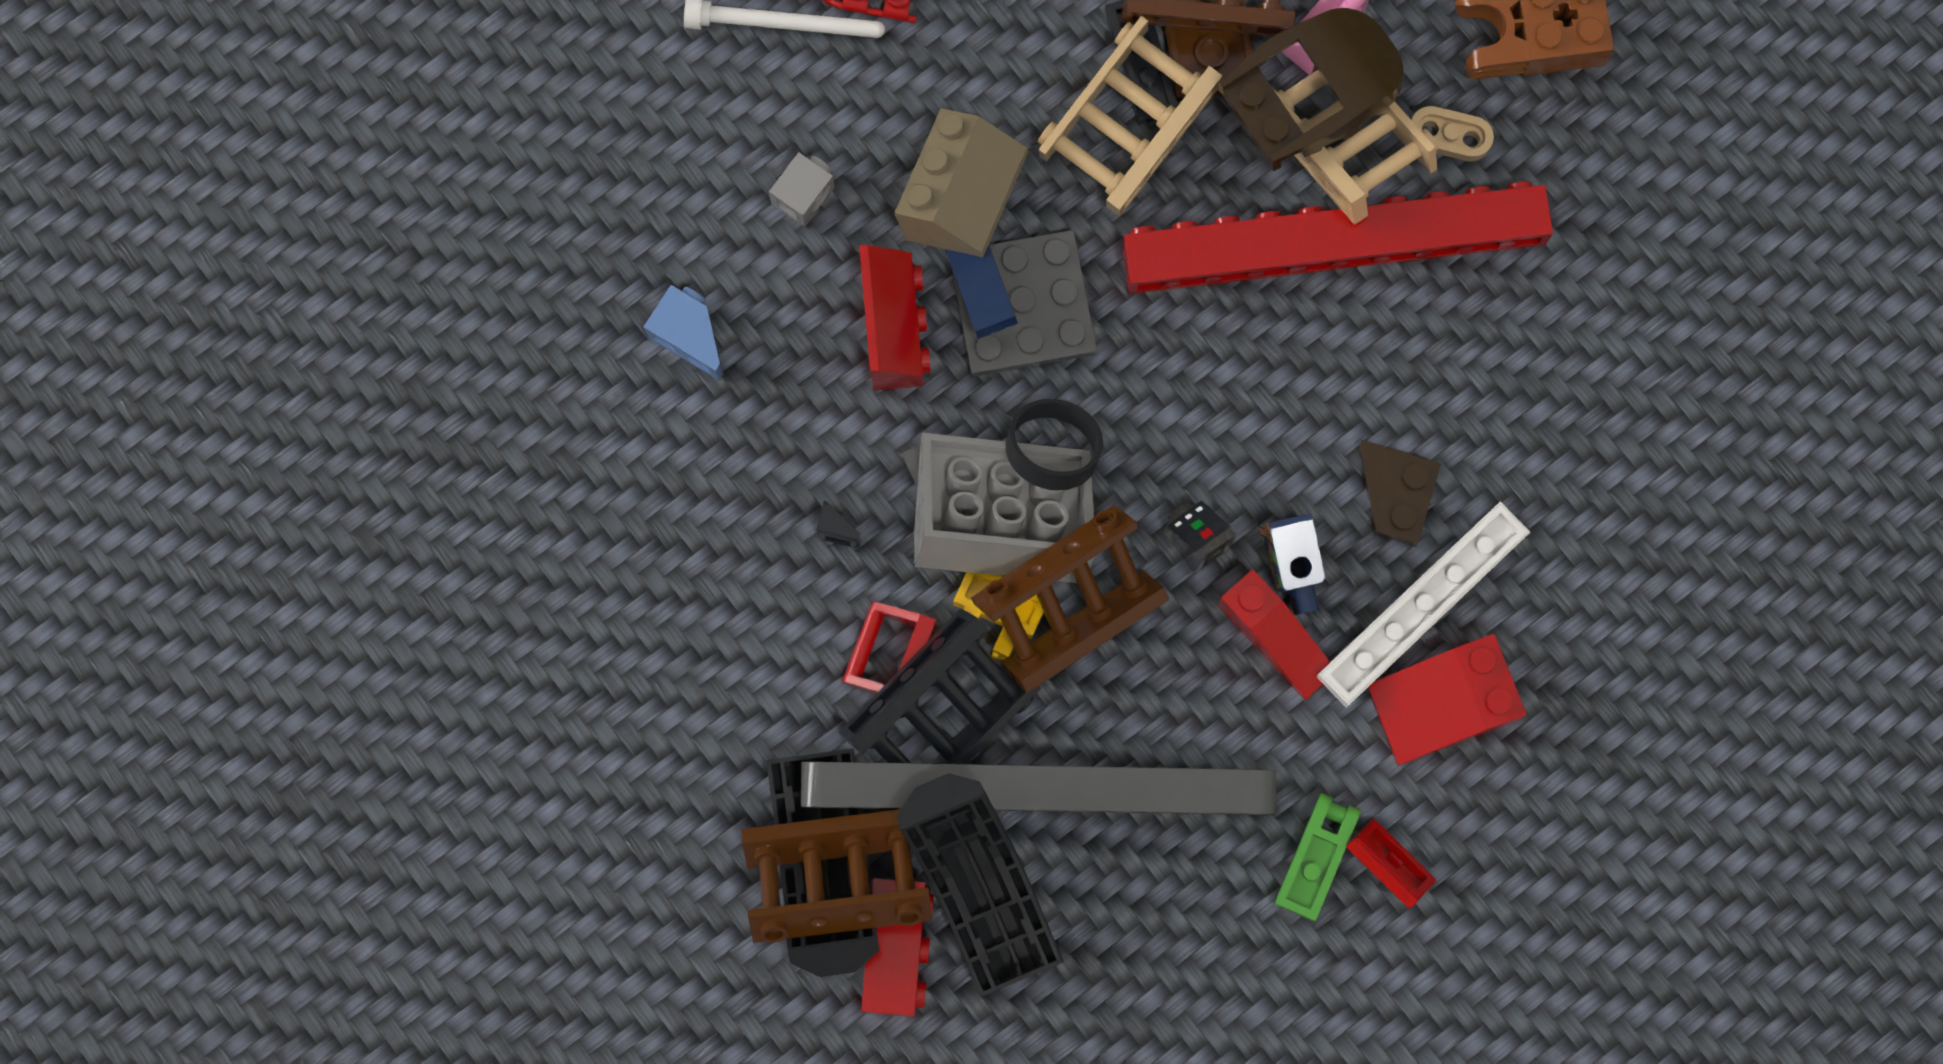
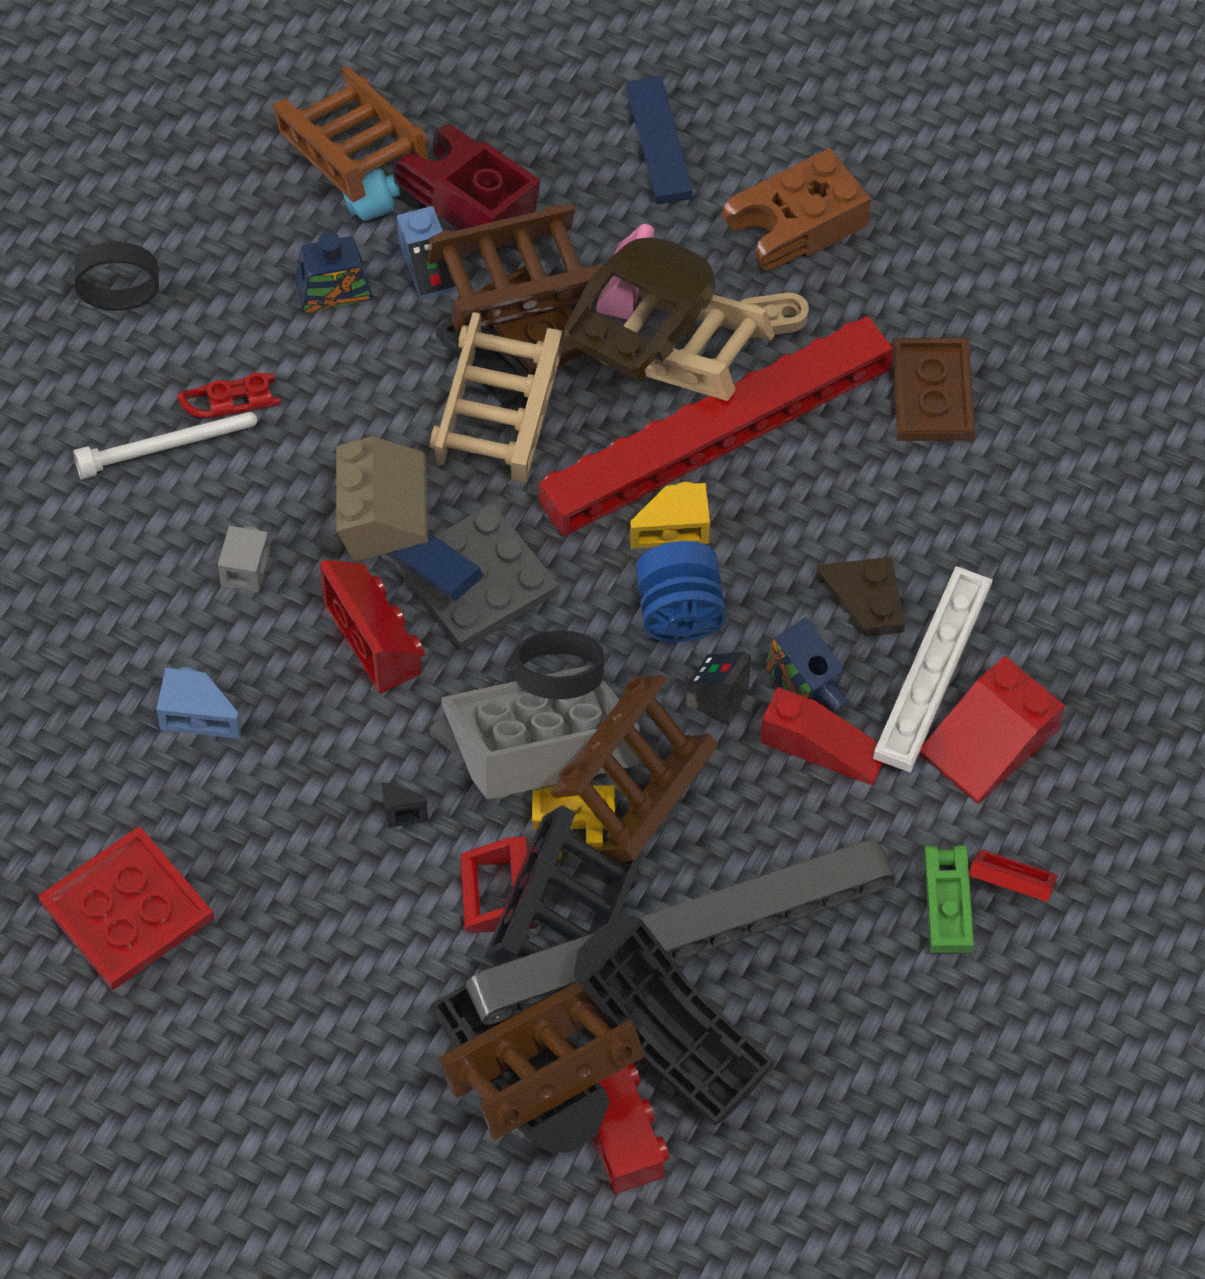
camera: 25 degrees left, 20 degrees down
(533, 519) = (126, 907): none -> red plate
(1210, 410) = (680, 591): none -> blue wheel
(1244, 325) = (672, 516): none -> yellow slope
(1577, 288) = (933, 389): none -> reddish brown tile

